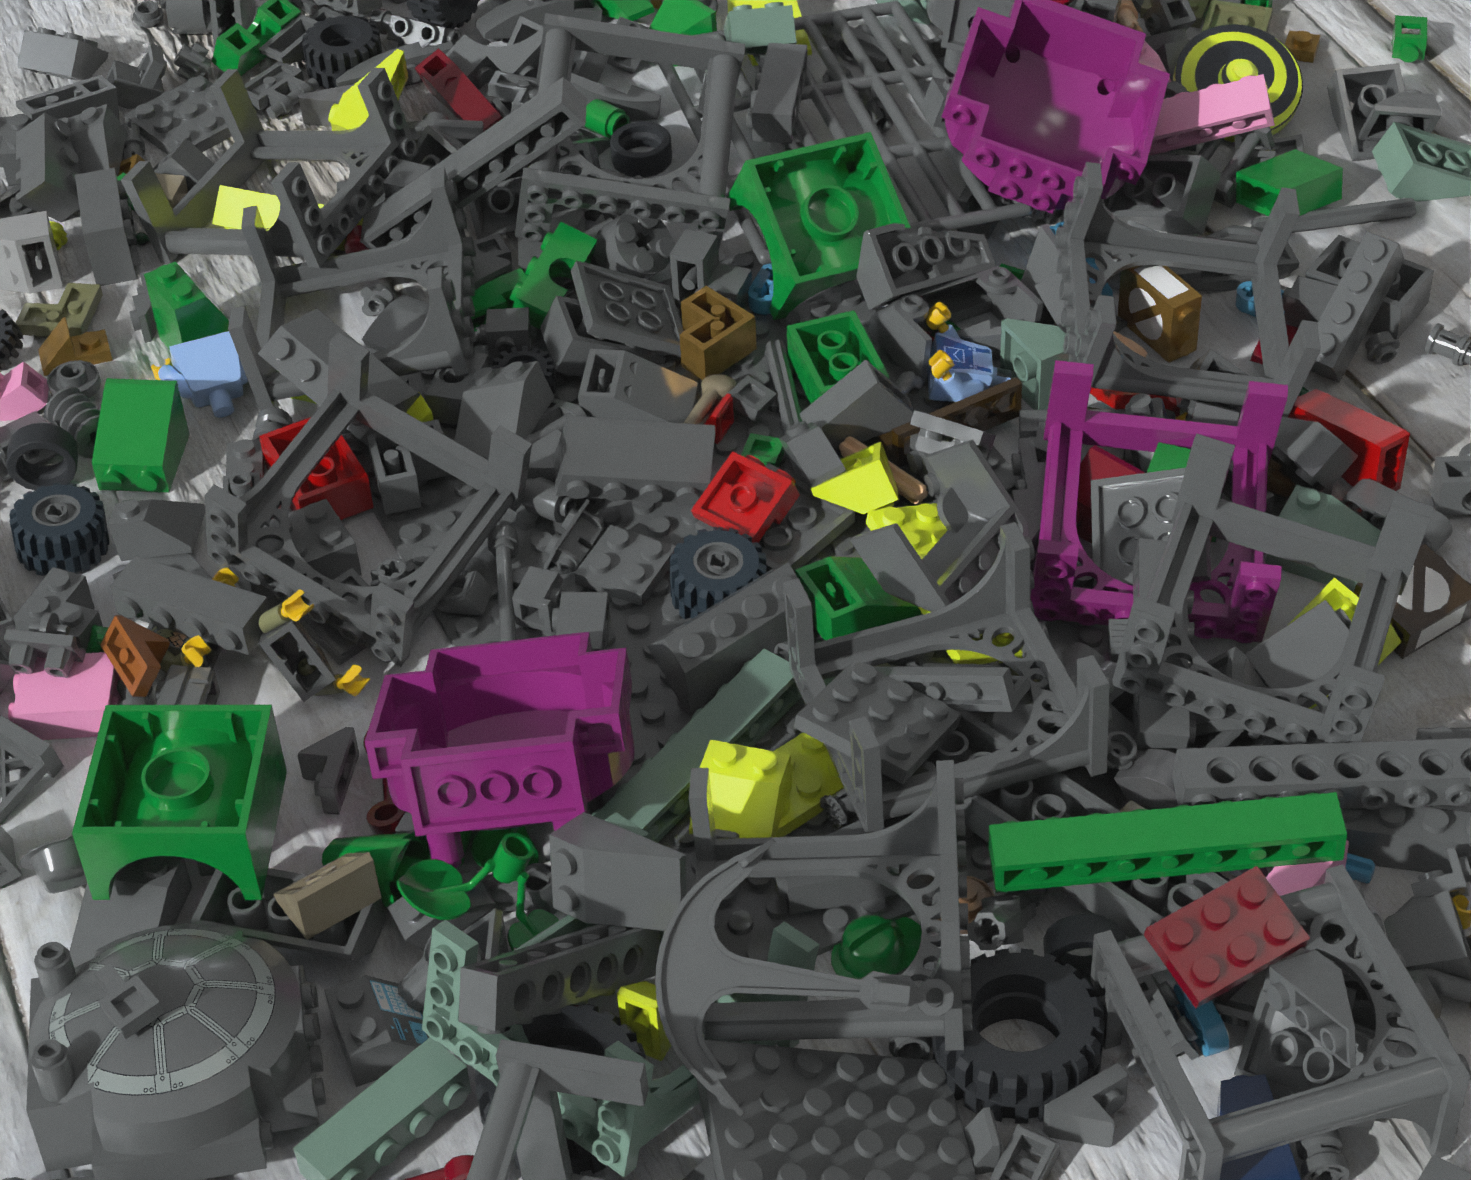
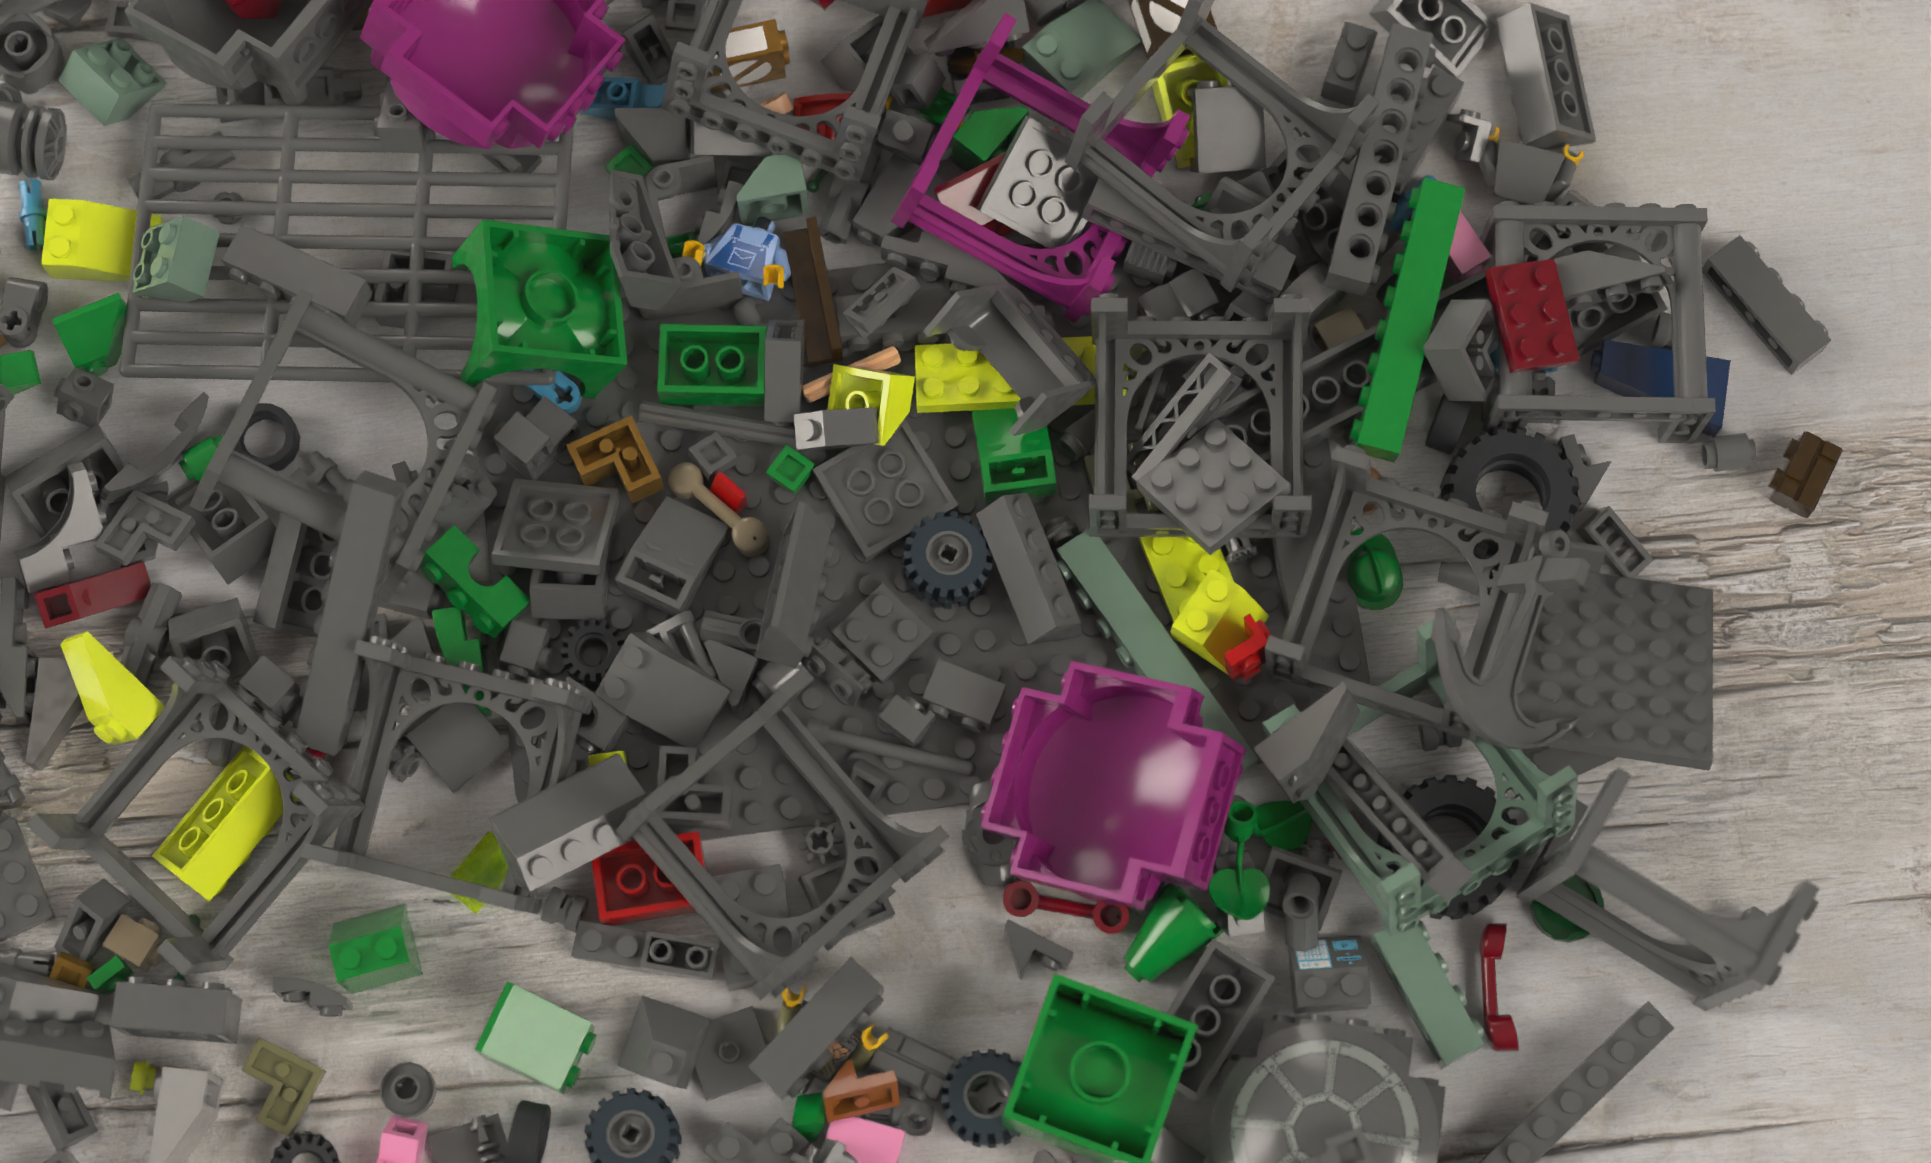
camera: 75 degrees left, 30 degrees up
(62, 348) = (345, 1083): pearl gold slope -> none
(76, 415) = (475, 1095): dark grey piece -> none
(206, 372) = (454, 950): light blue torso -> none
(299, 655) = (904, 946): torso -> none
(330, 893) = (1212, 979): dark tan slope -> none
(640, 1011) = (1396, 757): neon yellow slope -> none
(725, 799) = (1247, 657): none -> red bracket
(746, 497) = (873, 504): red plate -> none
(875, 109) = (302, 192): dark grey pin -> none
(1001, 920) = (1420, 472): dark grey piece -> none
(1144, 881) = (1460, 350): none -> dark grey brick

